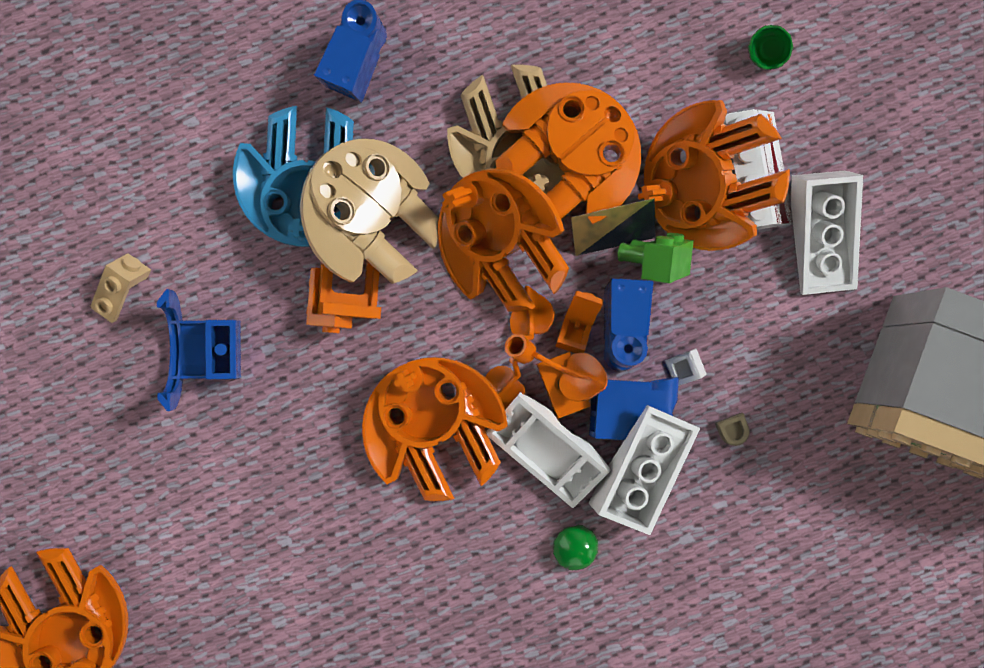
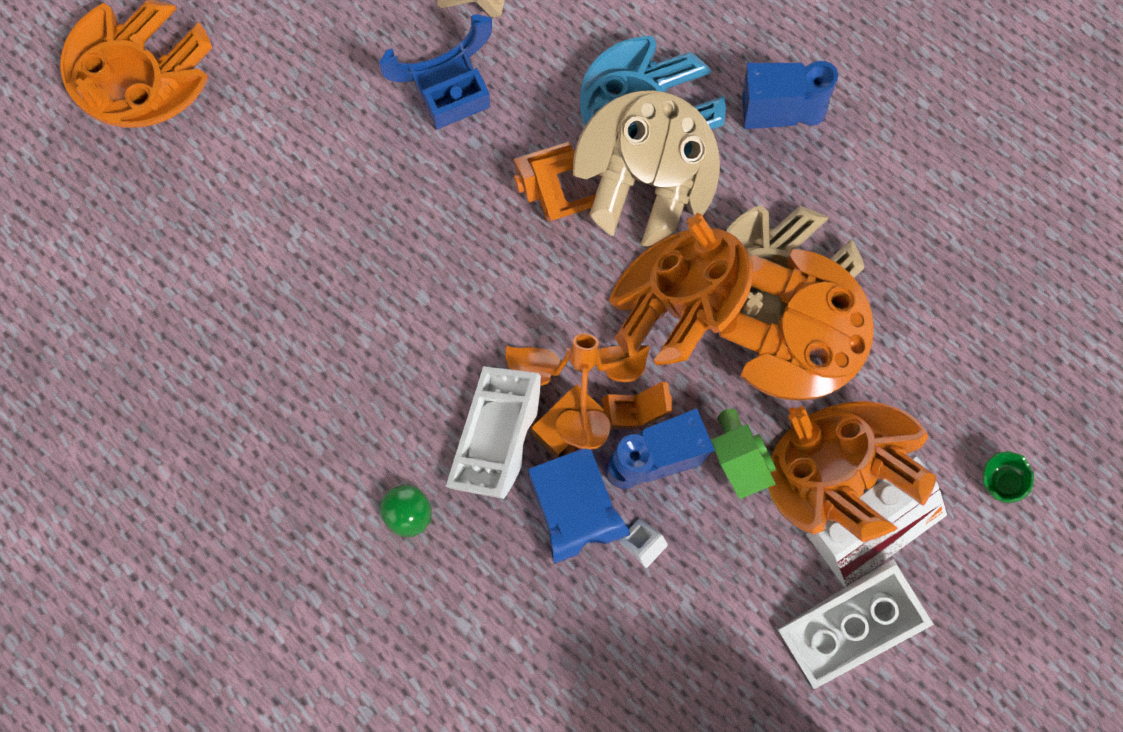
camera: 60 degrees right, 15 degrees down
(429, 420) = (473, 308): orange piece -> none
(620, 226) = (754, 403): sticker -> none
(644, 470) = (519, 535): white slope -> none
(733, 429) = (601, 622): dark tan tile -> none

